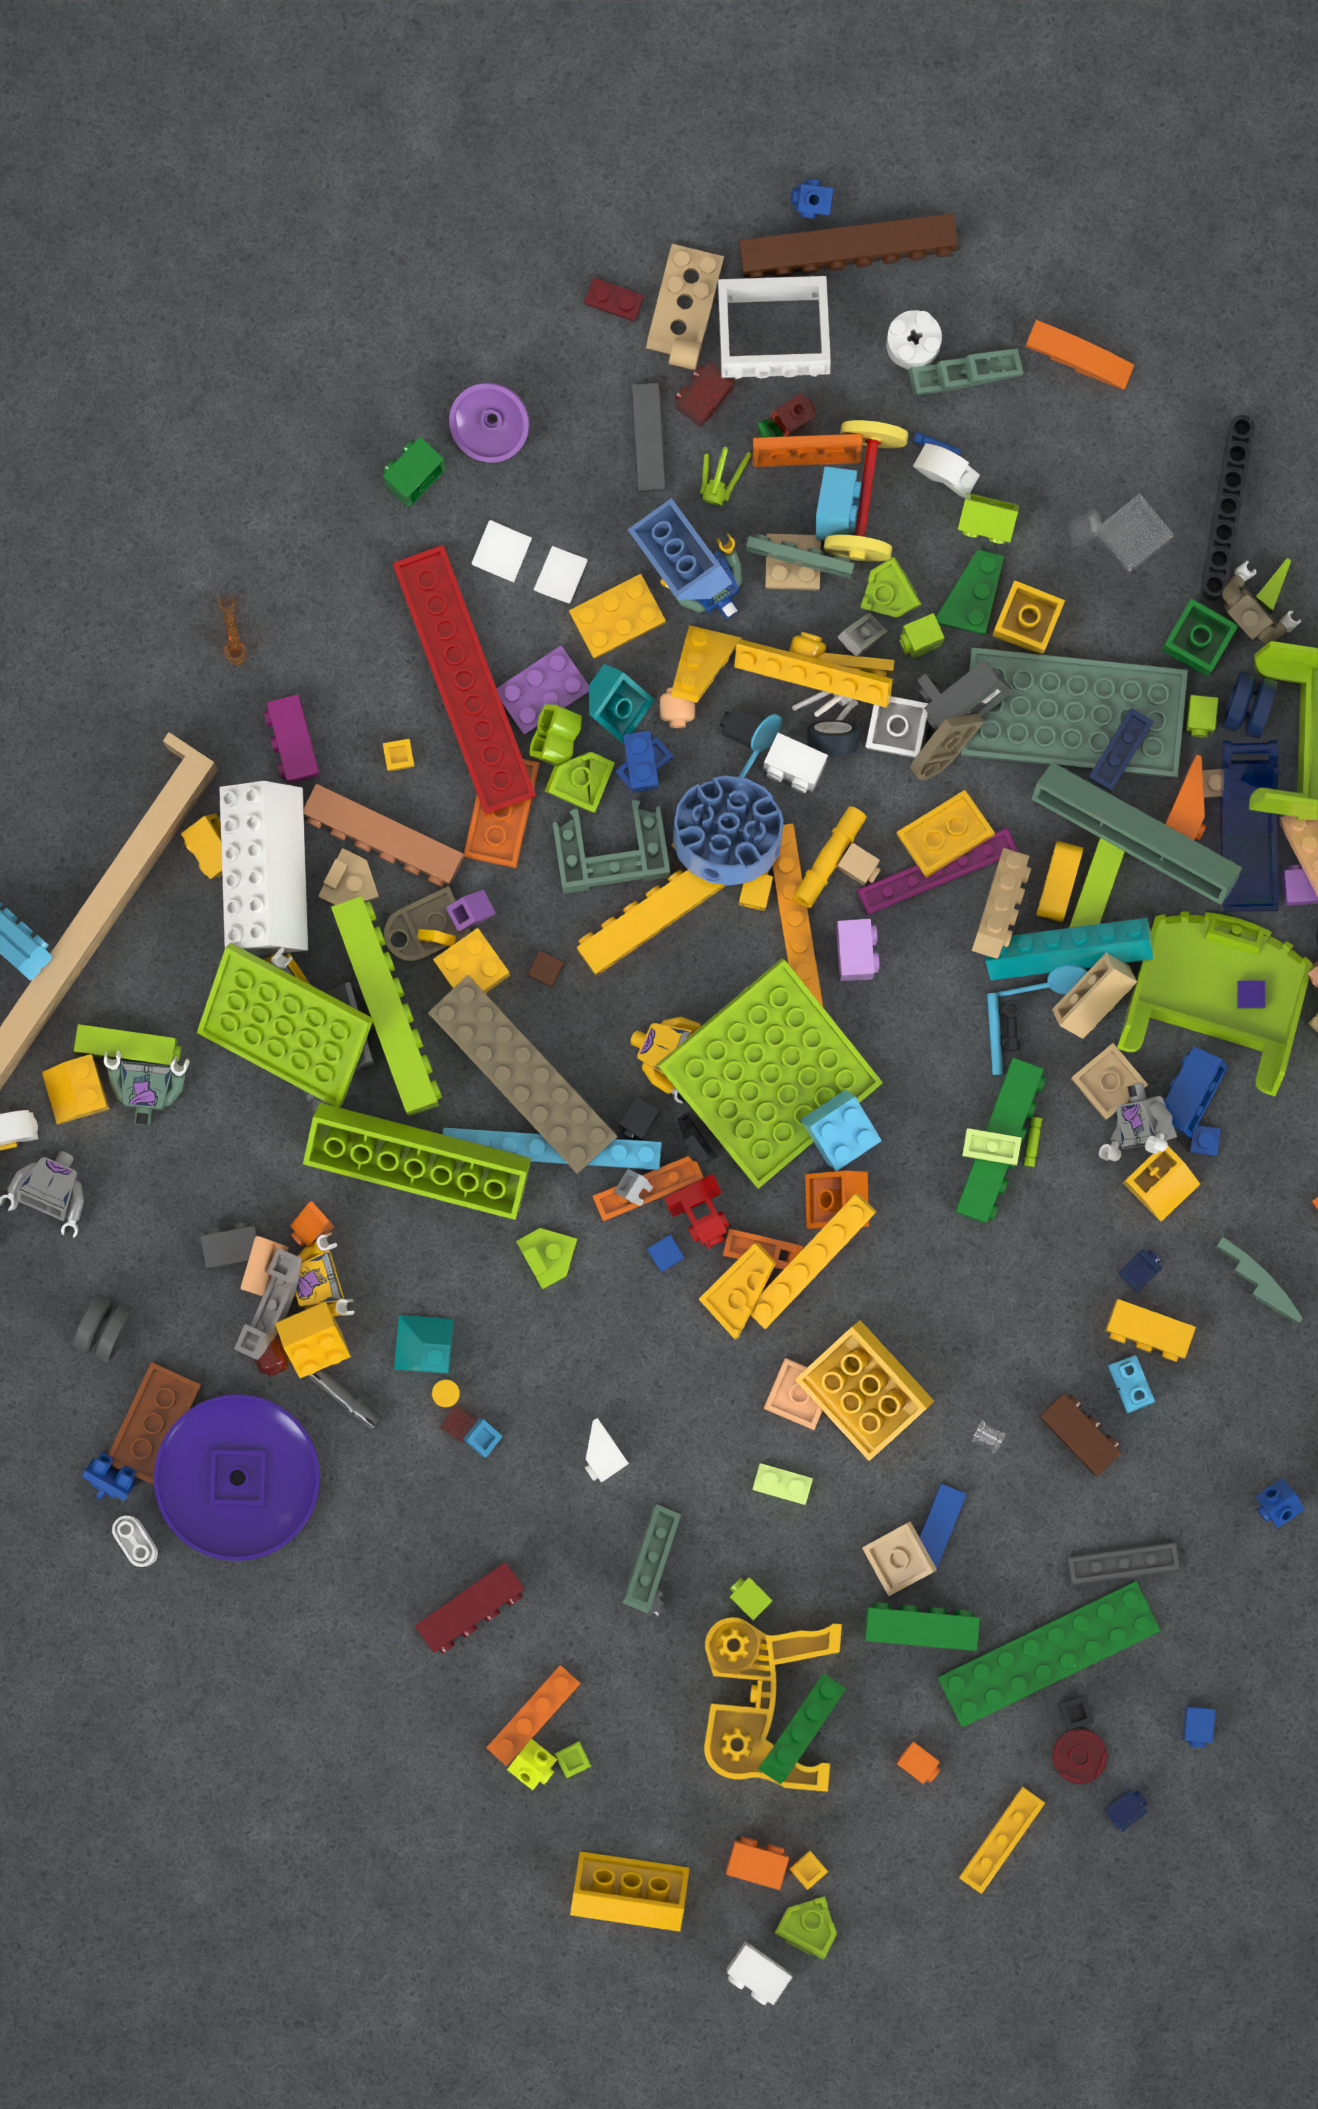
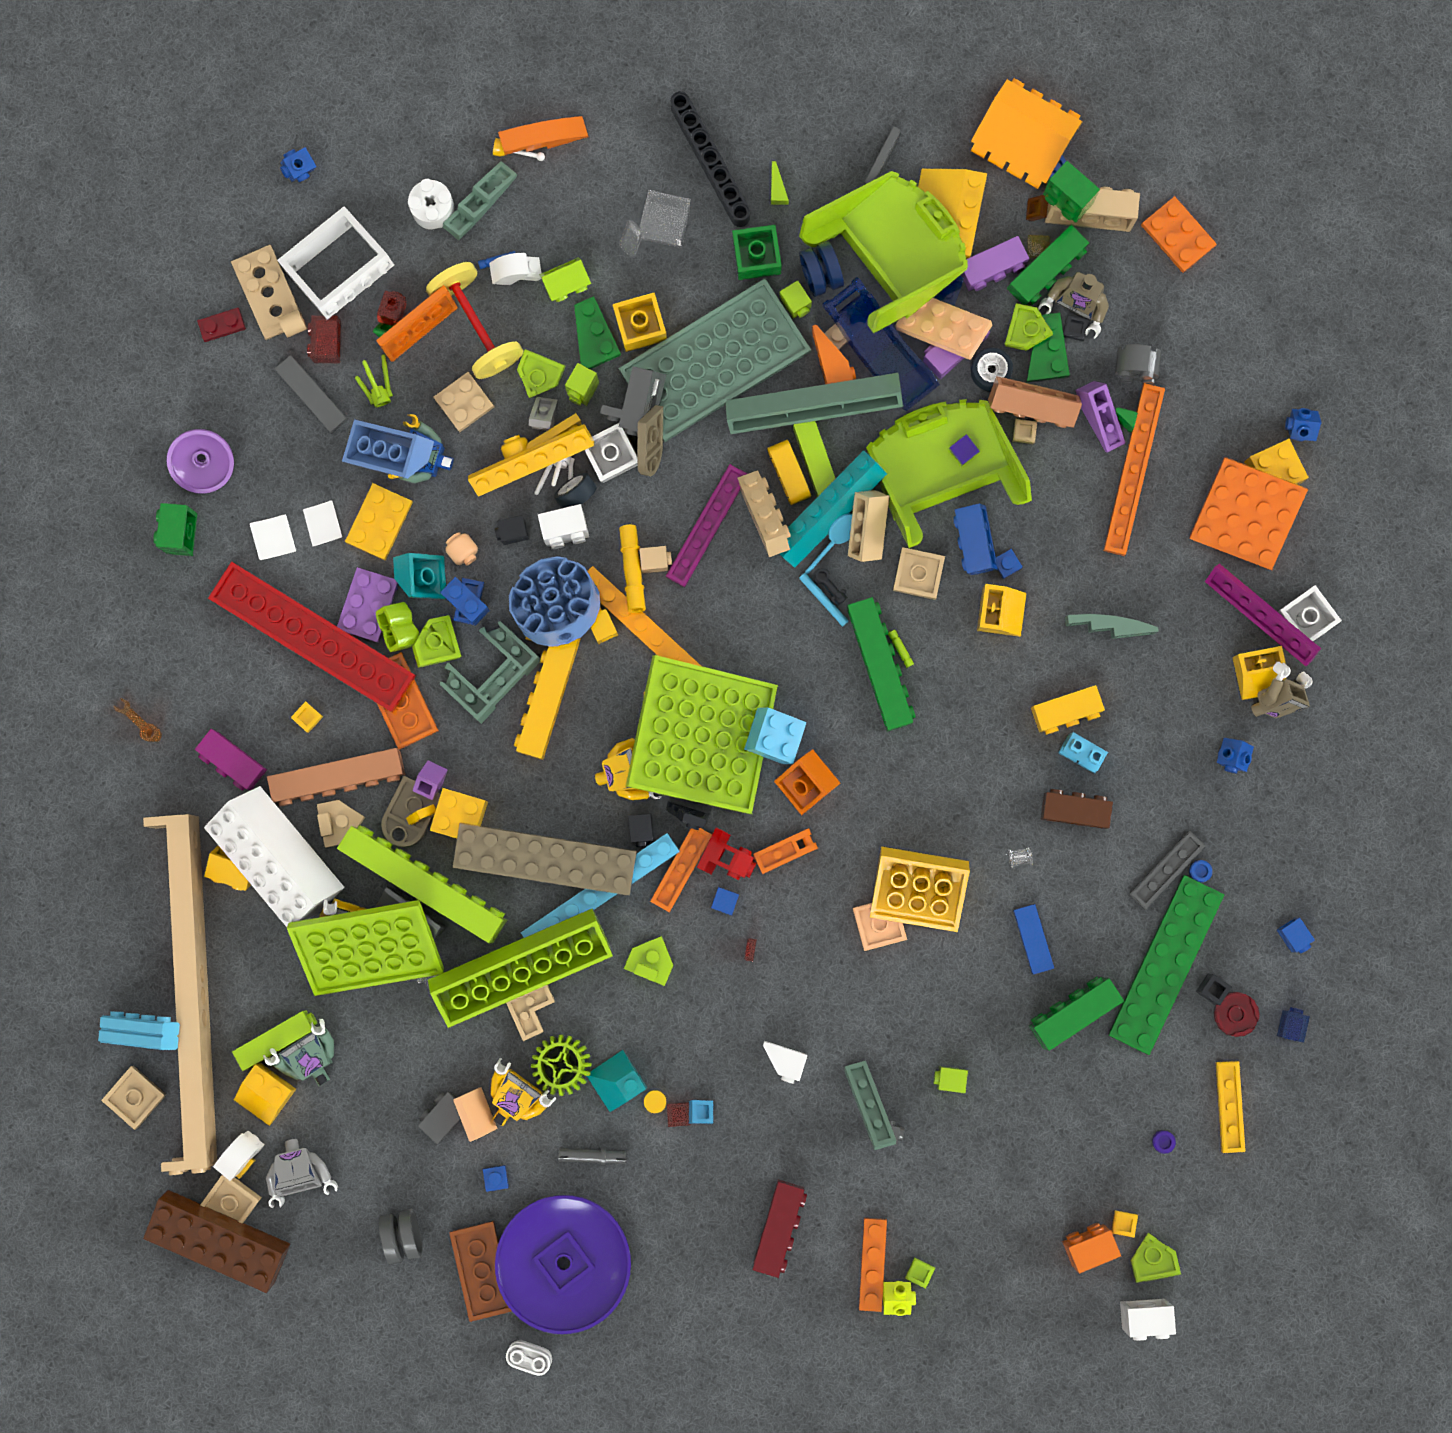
camera: 35 degrees left, 0 degrees up
(109, 1480) = (480, 1331): blue hips -> none
(228, 1344) = (495, 1178): none -> blue plate
(273, 1306) = (501, 1135): light grey slope -> none
(274, 1359) = (523, 1167): clear red head -> none
(310, 1225) = (483, 1062): orange slope -> none
(312, 1340) = (542, 1136): yellow brick -> none
(387, 1206) = (524, 1010): none -> tan plate
(393, 1279) = (558, 1075): none -> lime gear
(545, 969) = (507, 780): reddish brown tile -> none
(630, 1891) = (1023, 1329): yellow slope -> none
(631, 1186) = (670, 876): light grey tile -> none
(653, 1319) = (750, 949): none -> clear red tile
(700, 661) = (453, 508): yellow wing -> none
(738, 1289) = (789, 888): yellow wing -> none
(738, 1734) = (1011, 1172): yellow animal -> none
(763, 738) = (531, 526): medium azure piece -> none
(782, 1484) = (914, 989): yellowish green plate -> none
(789, 553) = (459, 396): sand green plate -> none
(801, 1728) = (1051, 1138): green brick -> none
(812, 1260) = (821, 833): yellow plate -> none
(837, 503) = (462, 340): medium azure brick -> none
(848, 246) = (344, 177): reddish brown brick -> none
(855, 949) = (695, 614): lavender brick -> none
(899, 1558) = (1026, 979): tan plate -> none
(909, 1822) = (1163, 1141): none -> dark purple tile
(919, 1763) = (1140, 1100): orange brick -> none
(945, 833) = (693, 497): yellow tile -> none
(991, 1146) = (879, 671): yellowish green plate -> none
(1023, 335) = (498, 151): none -> hinge
(1120, 749) = (762, 359): dark blue plate -> none
(1140, 1124) = (960, 584): torso -> none
(1140, 1269) = (1031, 676): clear blue bracket -> none
(1155, 1590) = (1200, 871): none -> blue tile
(1250, 613) = (776, 212): dark tan torso -> none

